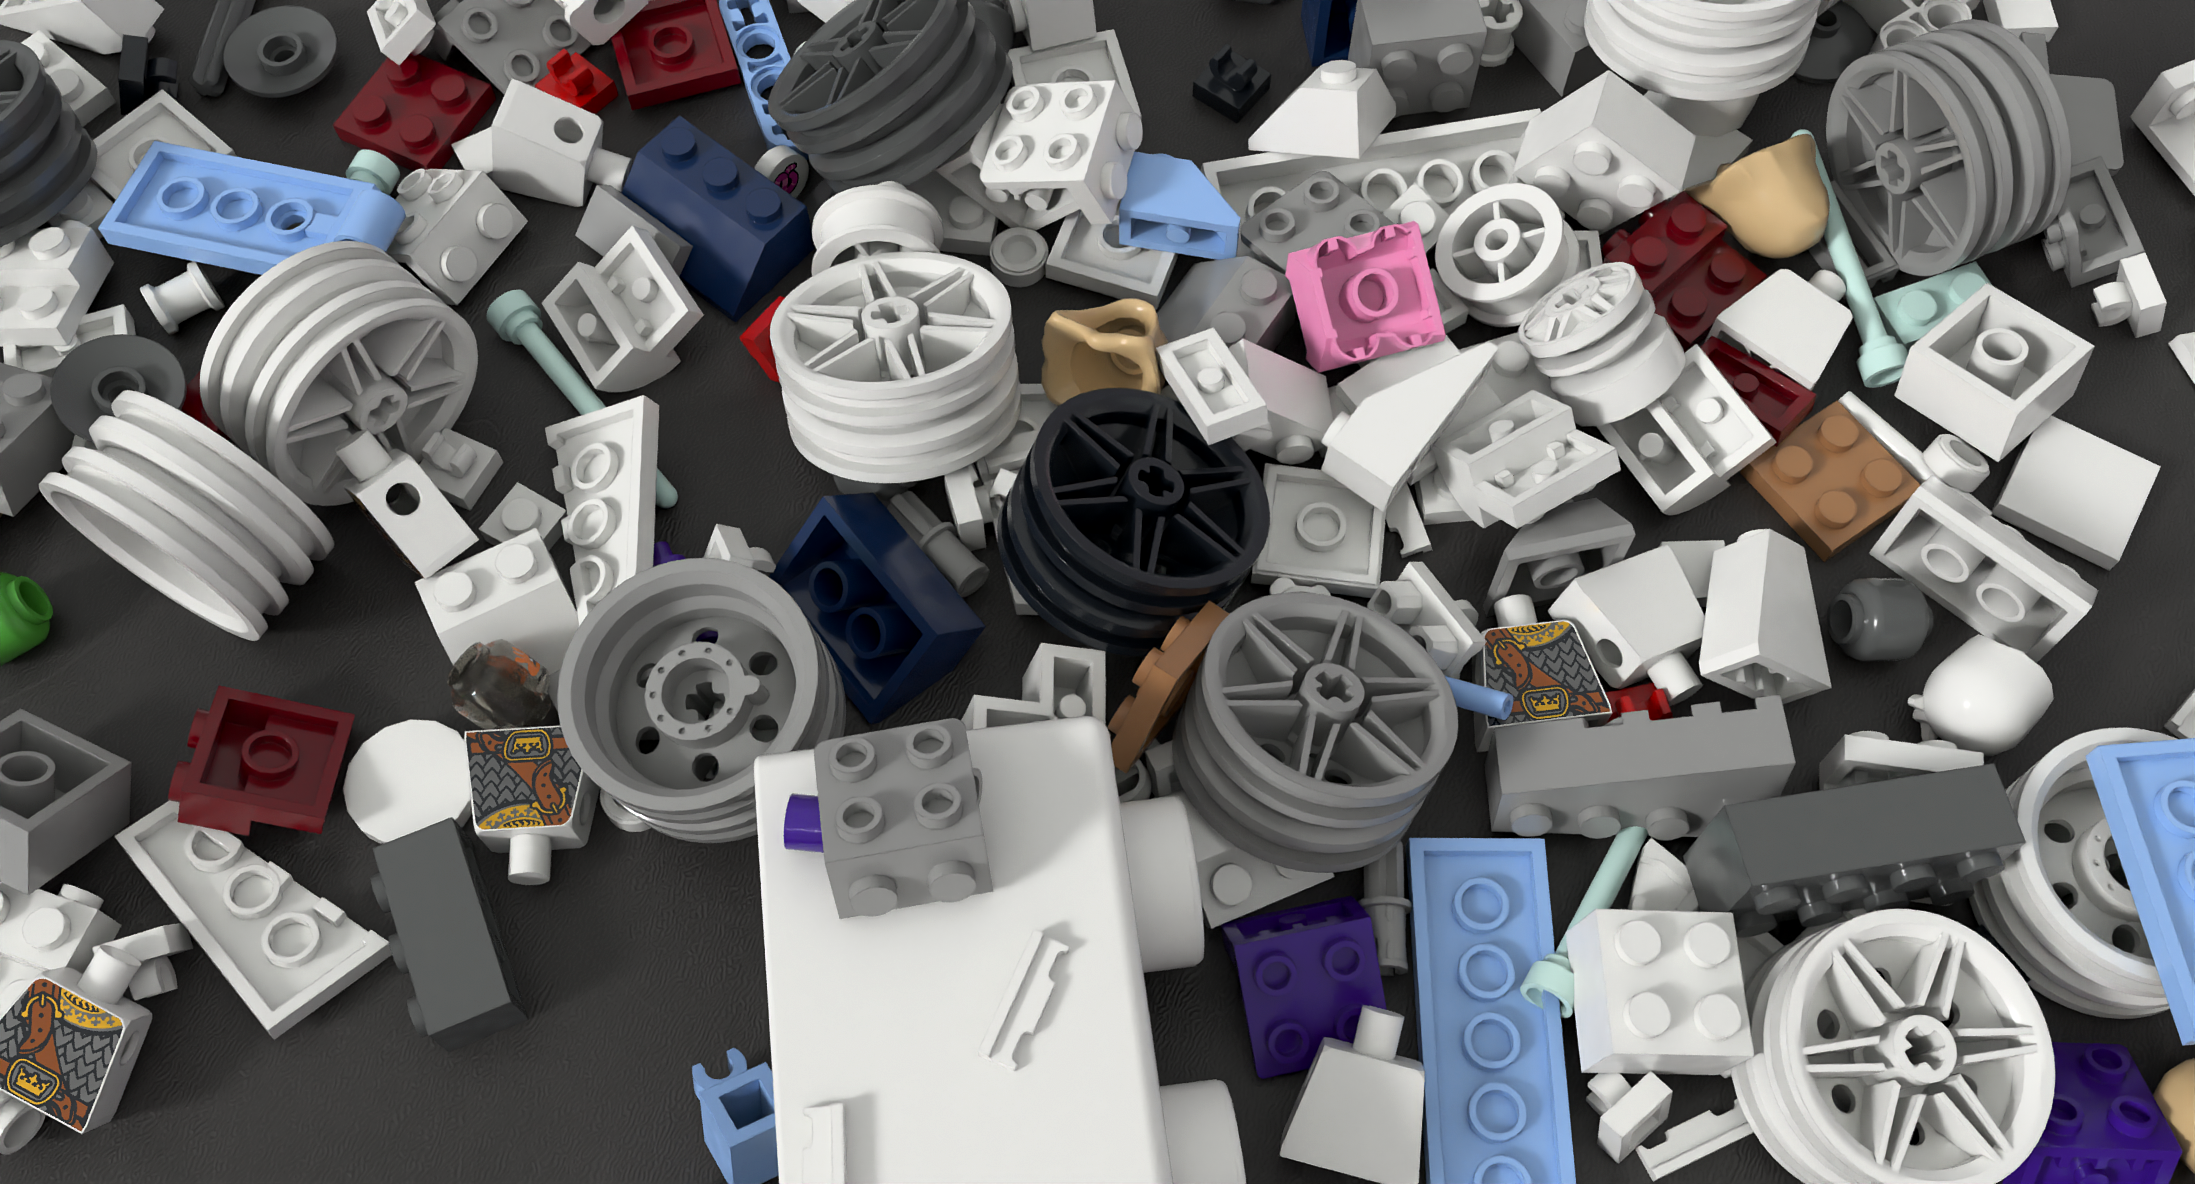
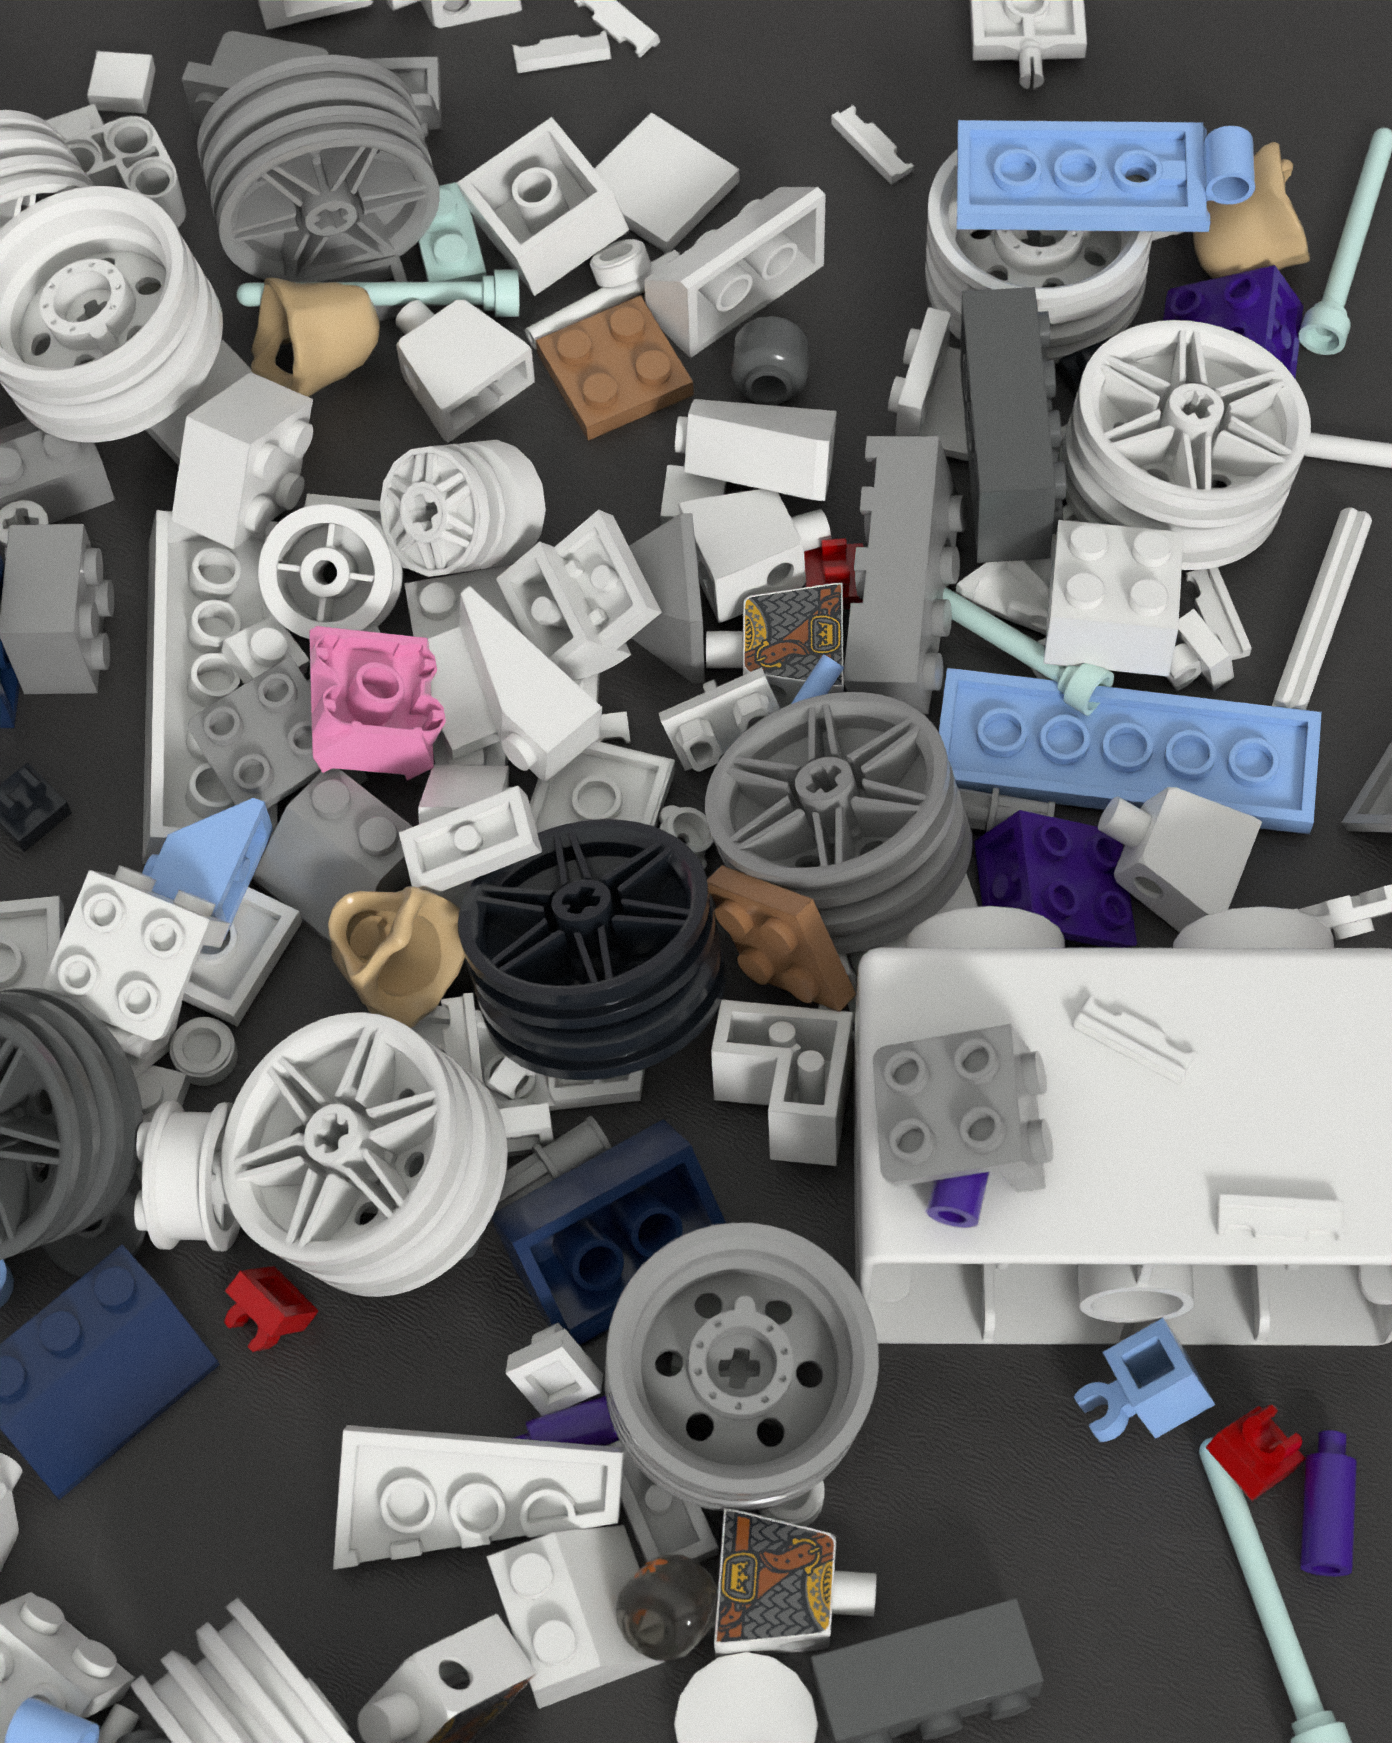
camera: 80 degrees left, 0 degrees up
(459, 466) = (355, 1672): white tile -> none
(519, 321) = (182, 1597): light aqua piece -> none
(522, 512) = (447, 1598): white plate -> none
(610, 217) = (98, 1460): light grey tile -> none
(624, 314) = (203, 1467): white brick -> none
(784, 168) = (37, 1283): white tile -> none
(1329, 114) = (123, 712): white slope -> none
(1685, 265) = (363, 433): dark red plate -> none
(1689, 437) = (570, 457): white brick -> none
(1770, 395) = (517, 405): dark red plate -> none
(1983, 697) = (862, 301): white helmet -> none
(2132, 297) = (474, 80): white tile -> none

